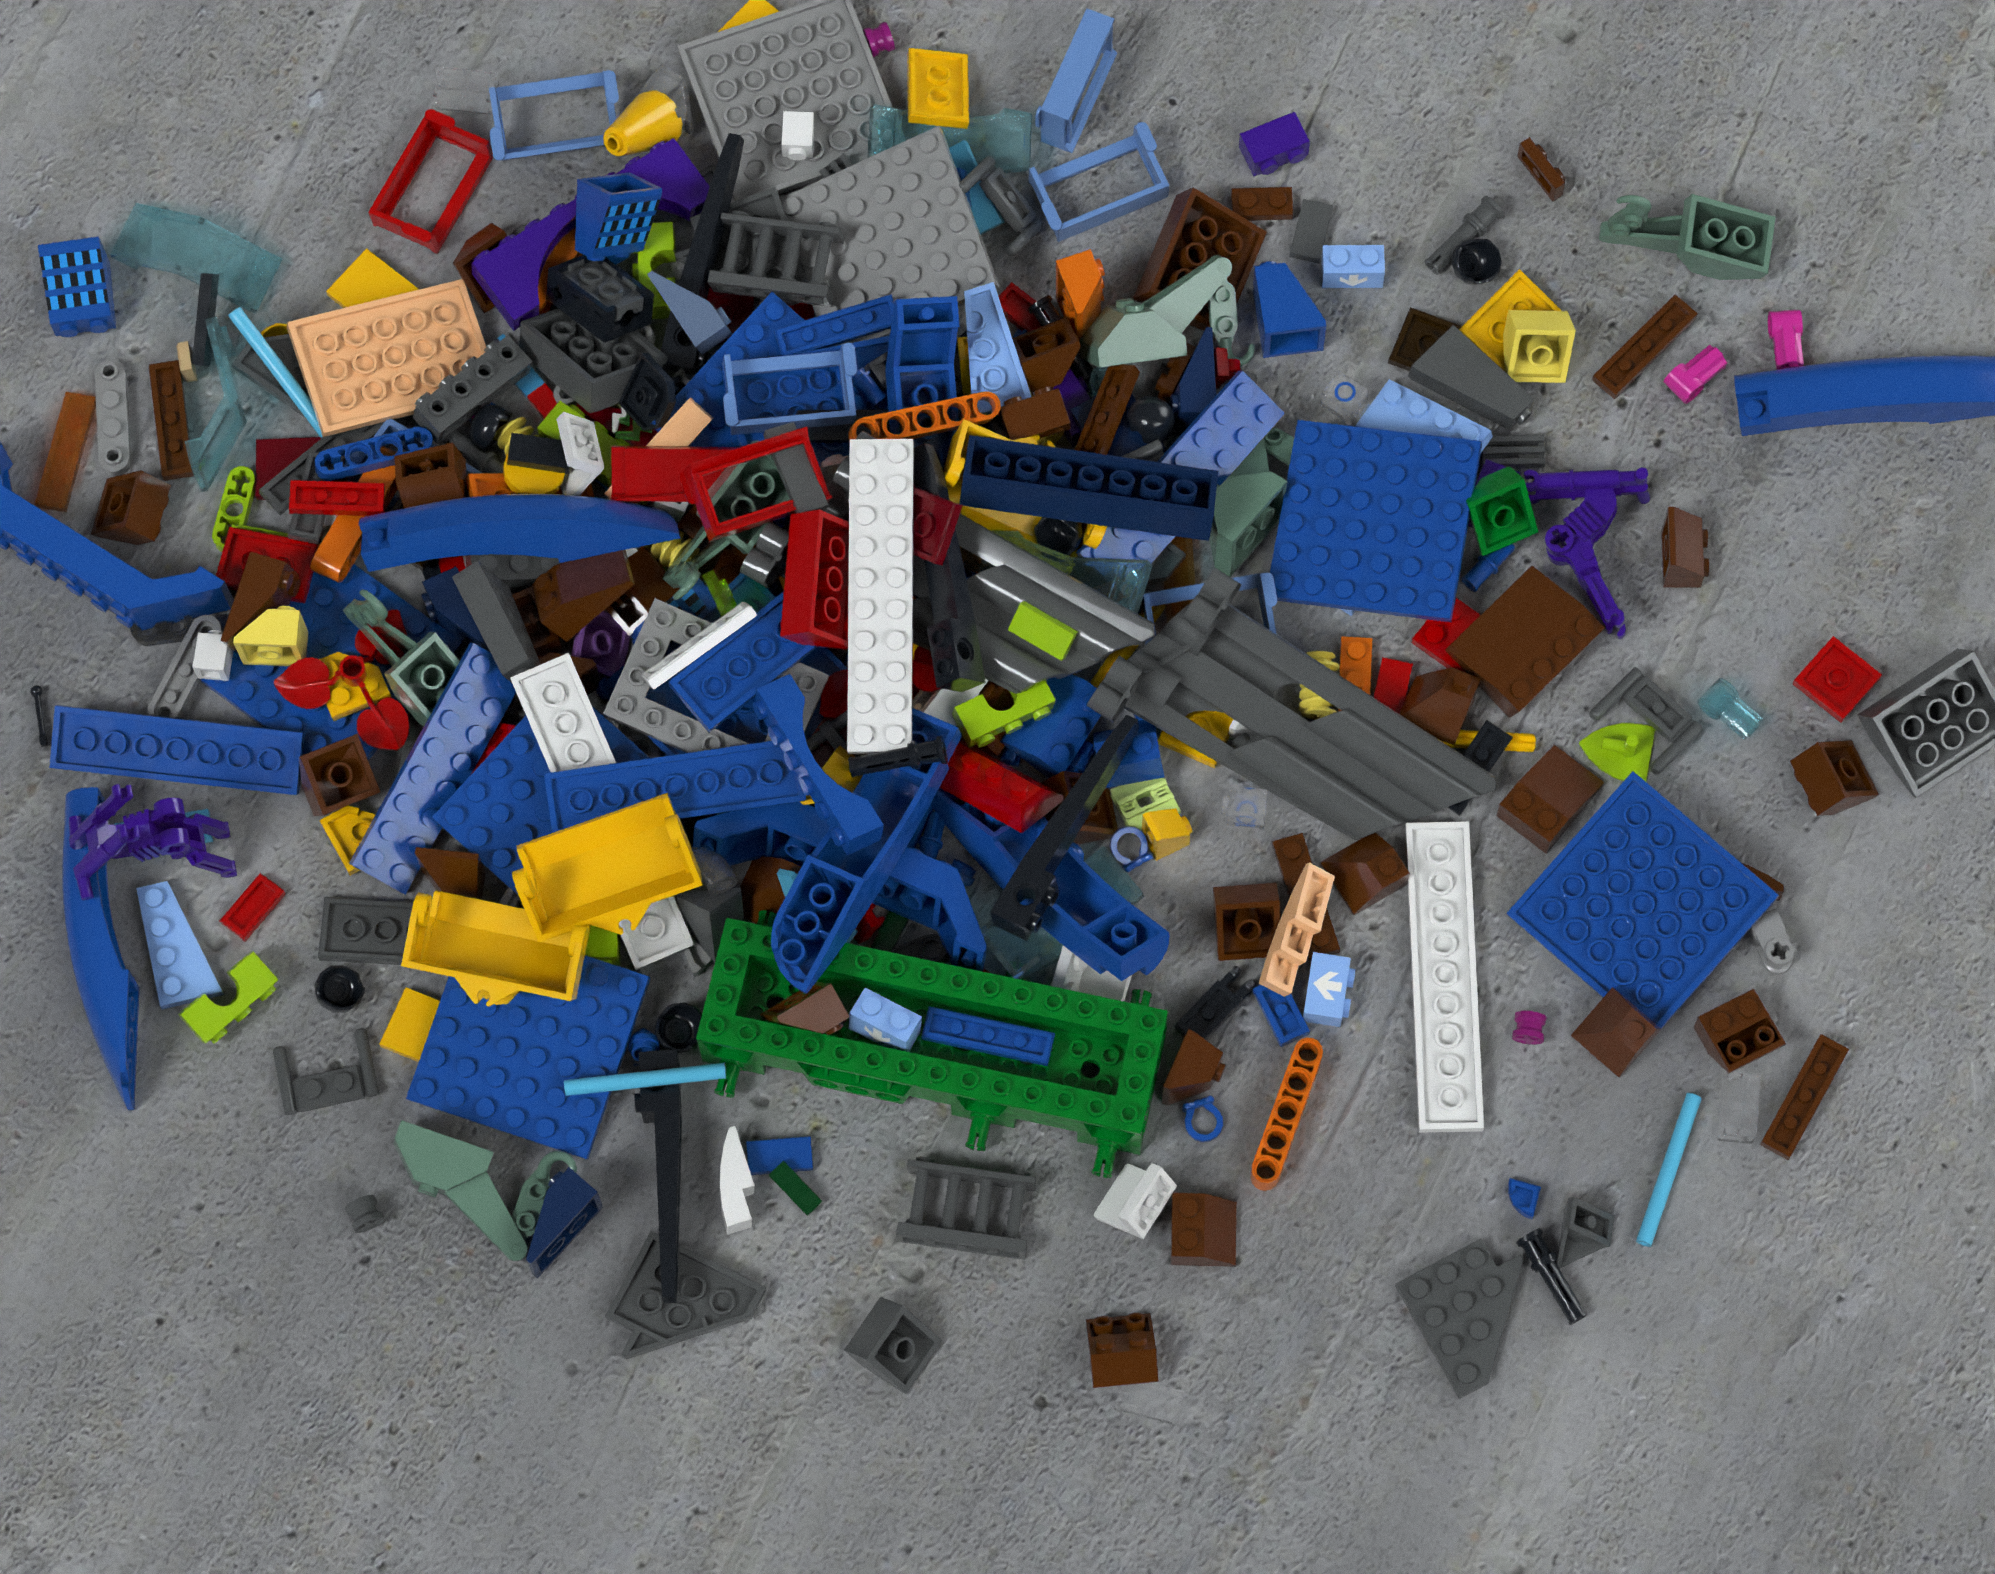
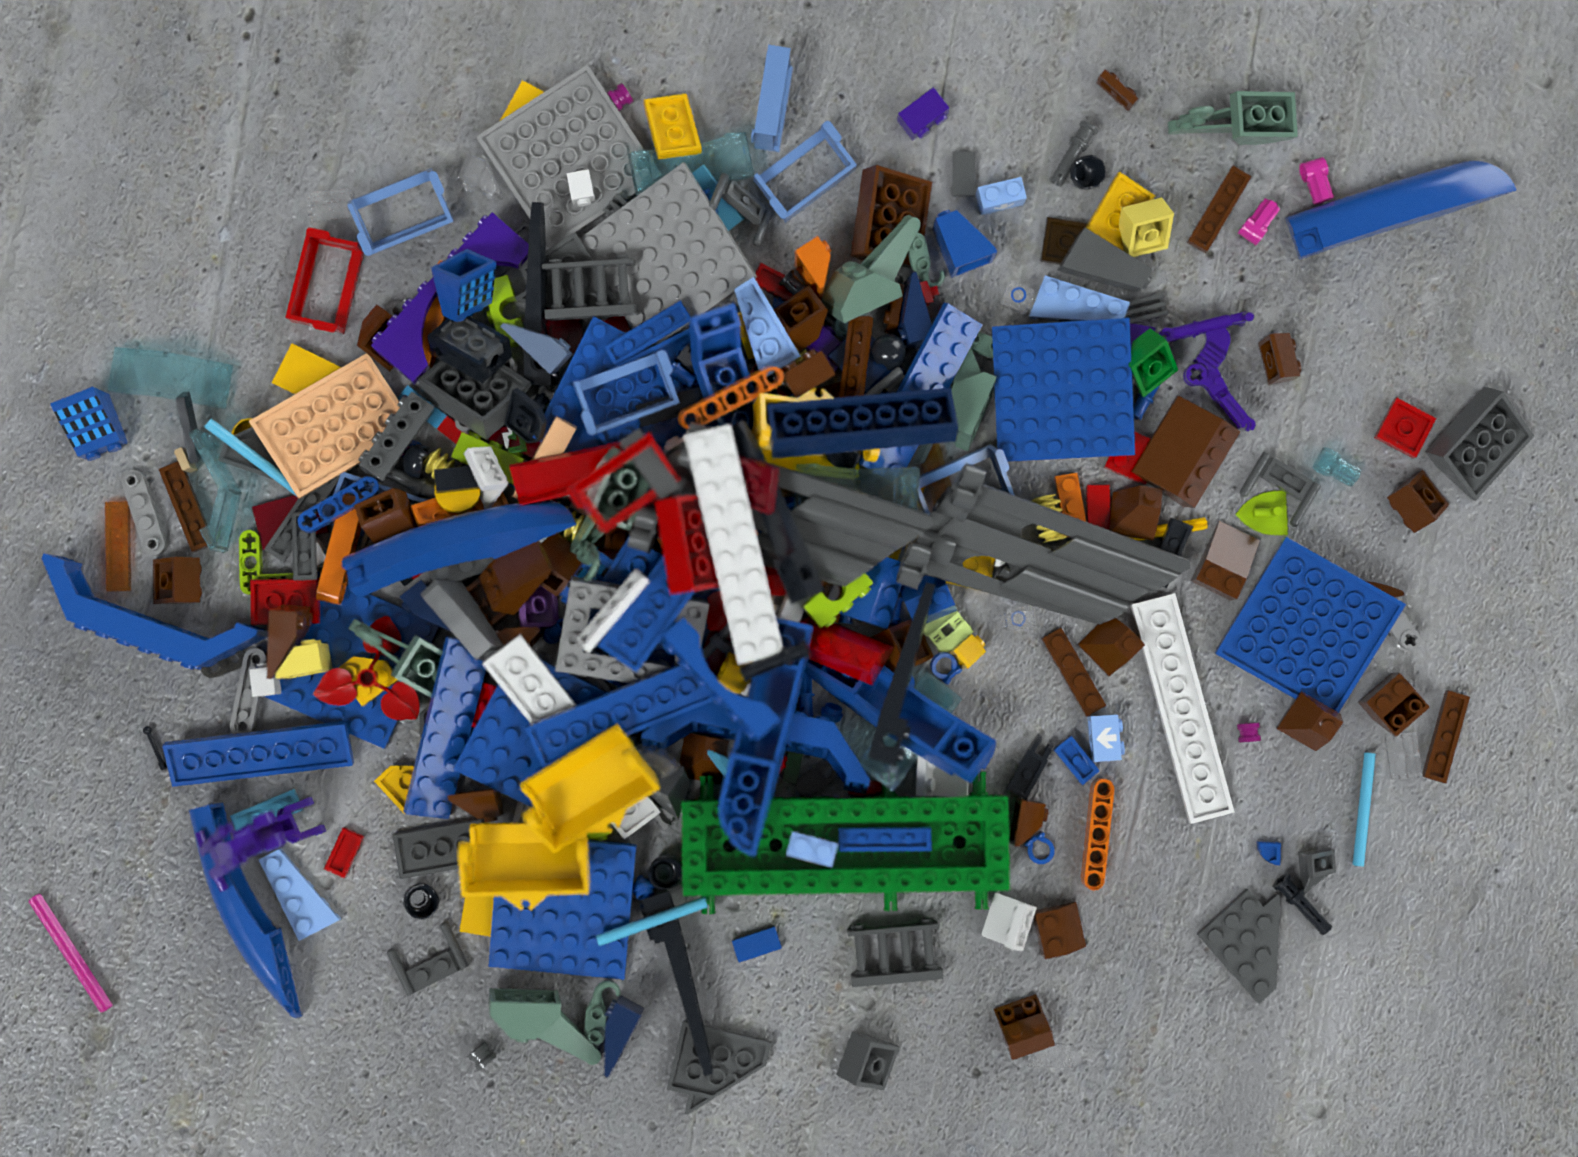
camera: 20 degrees left, 15 degrees up
(252, 982) = (337, 943): lime arch -> none
(336, 498) = (321, 546): red plate -> none
(337, 776) = (378, 750): reddish brown slope -> none
(643, 124) = (467, 206): yellow cone -> none
(720, 592) = (618, 567): clear neon green plate -> none
(735, 1184) = (731, 974): white slope -> none
(795, 1188) = (773, 965): dark green piece -> none
(816, 1011) = (765, 863): reddish brown slope -> none
(1042, 630) = (854, 538): lime tile -> none
(1245, 920) = (1038, 700): reddish brown slope -> none
(1263, 203) = (924, 160): reddish brown plate -> none
(1295, 930) = (1077, 696): light nougat slope -> none

